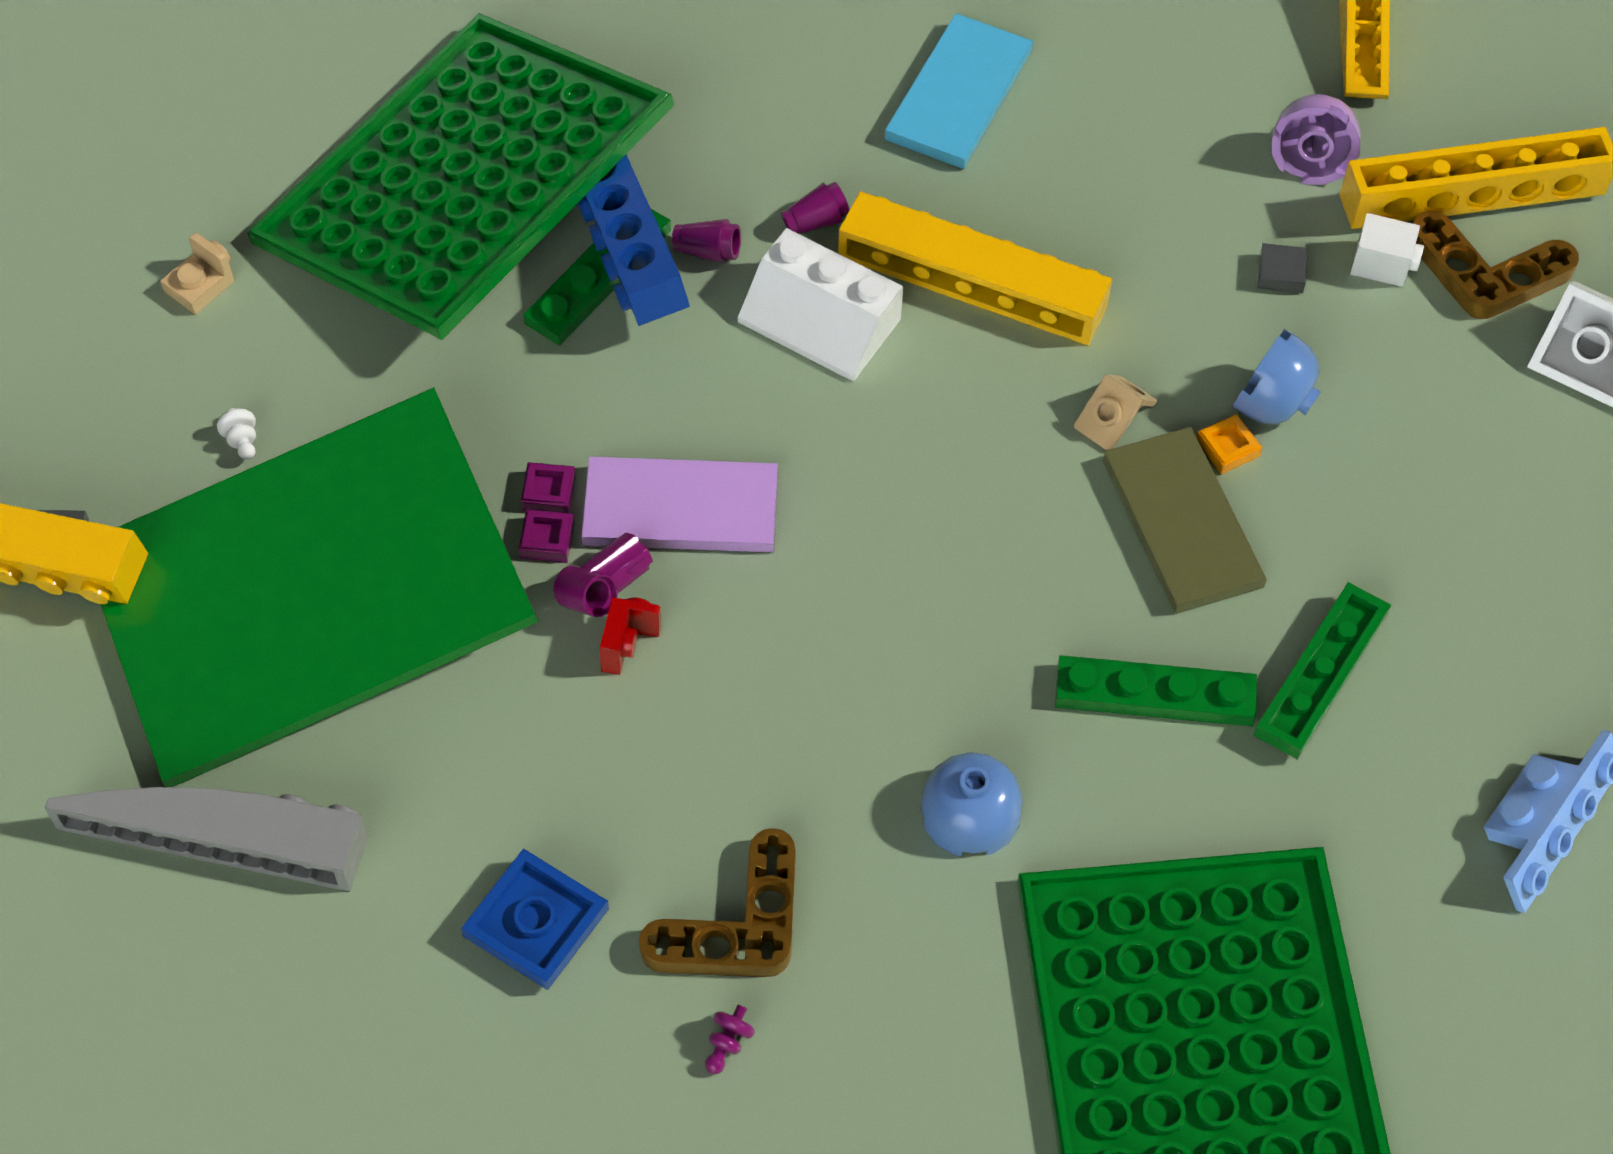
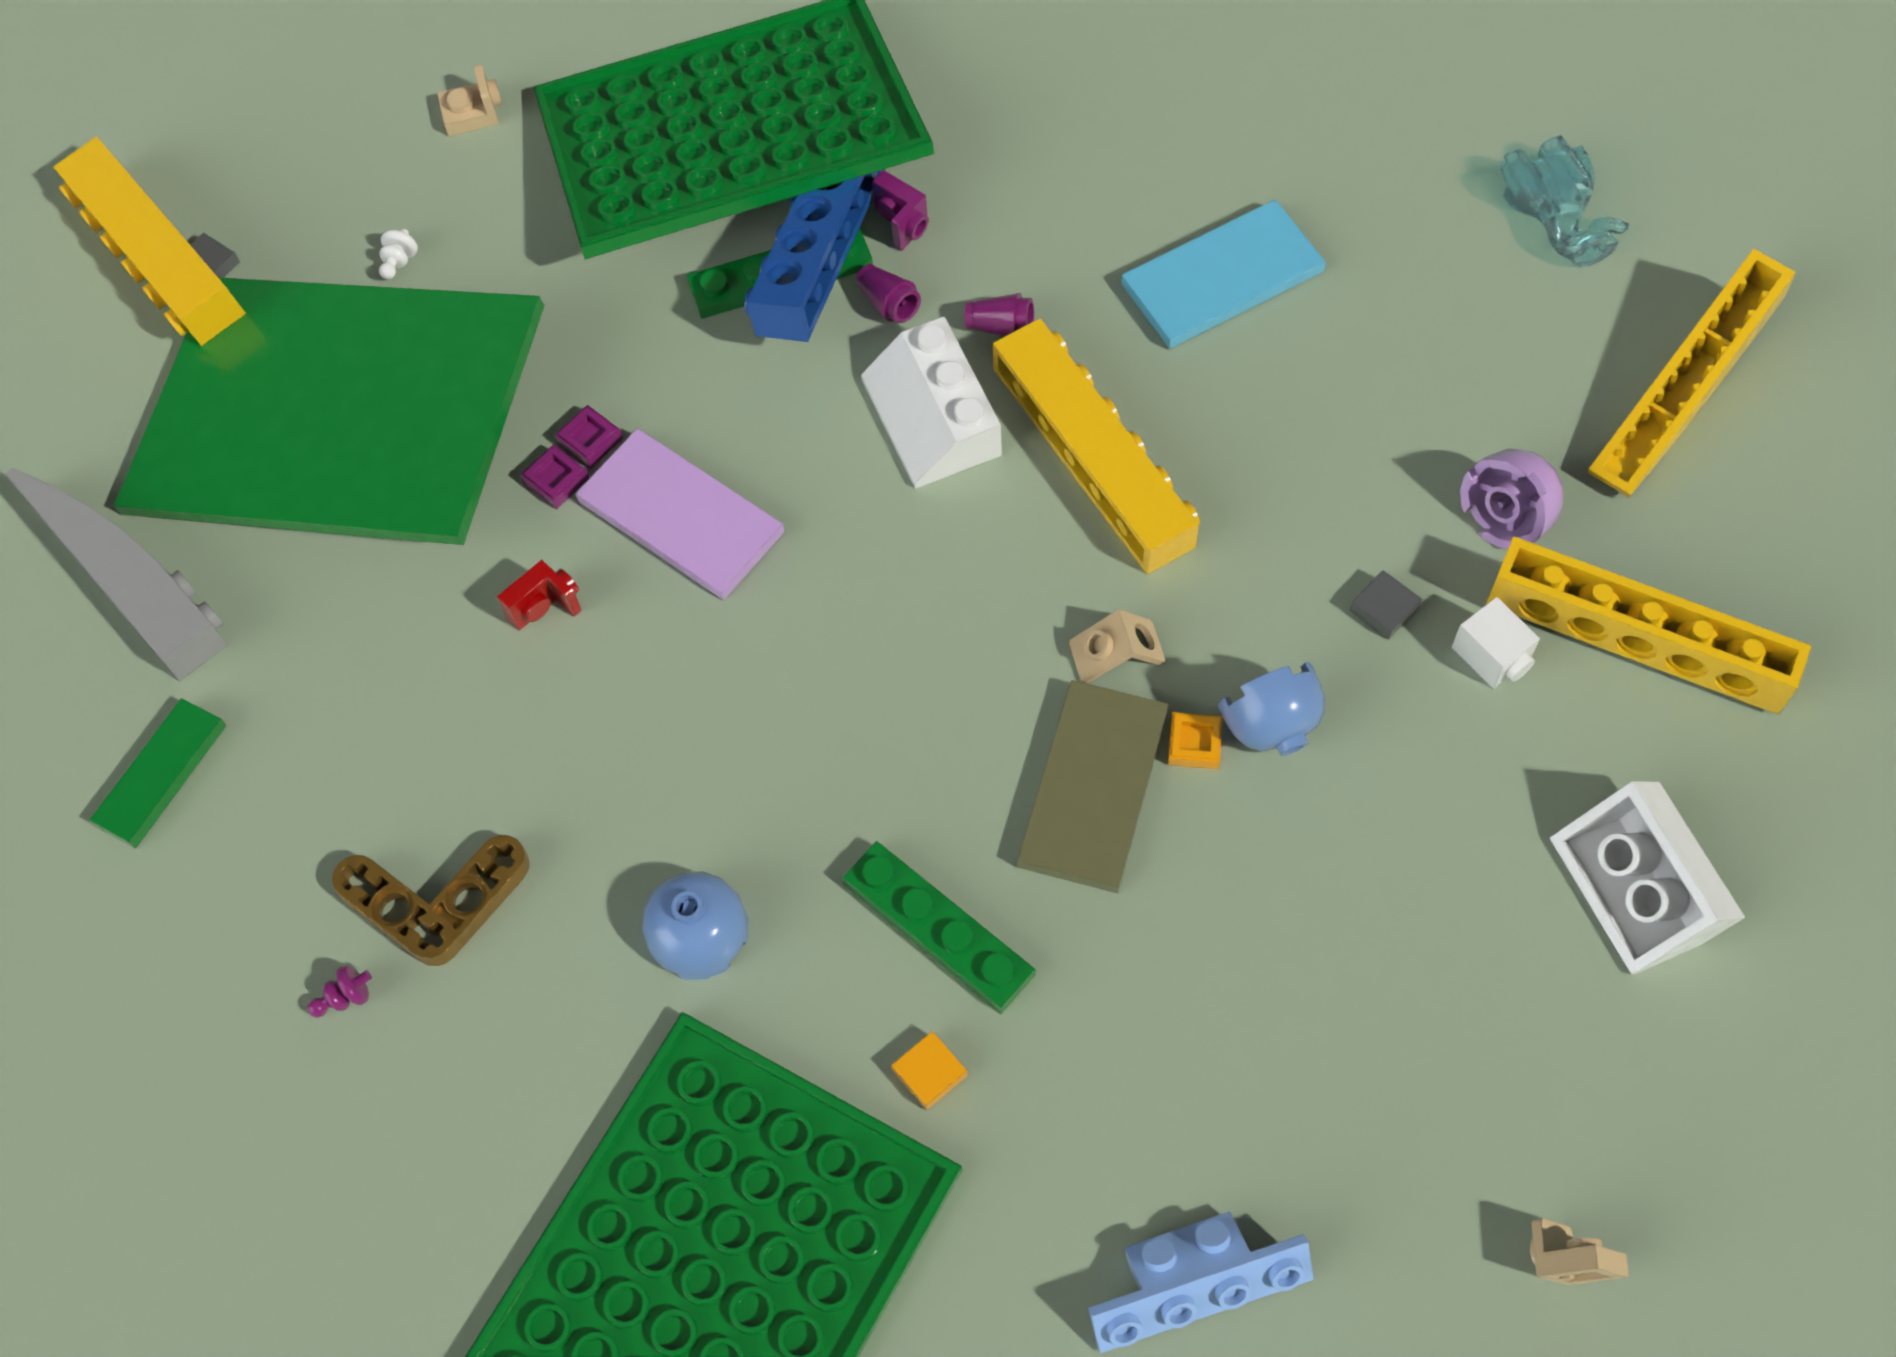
camera: 40 degrees right, 5 degrees up
(404, 972) = (158, 773): none -> green tile
(535, 919) = (280, 794): blue plate -> none
(594, 584) = (565, 537): magenta piece -> none
(663, 165) = (902, 207): none -> magenta bracket
(1239, 797) = (929, 1070): none -> light orange tile
(1322, 670) = (1098, 1003): green plate -> none
(1491, 280) = (1586, 734): pearl gold beam -> none

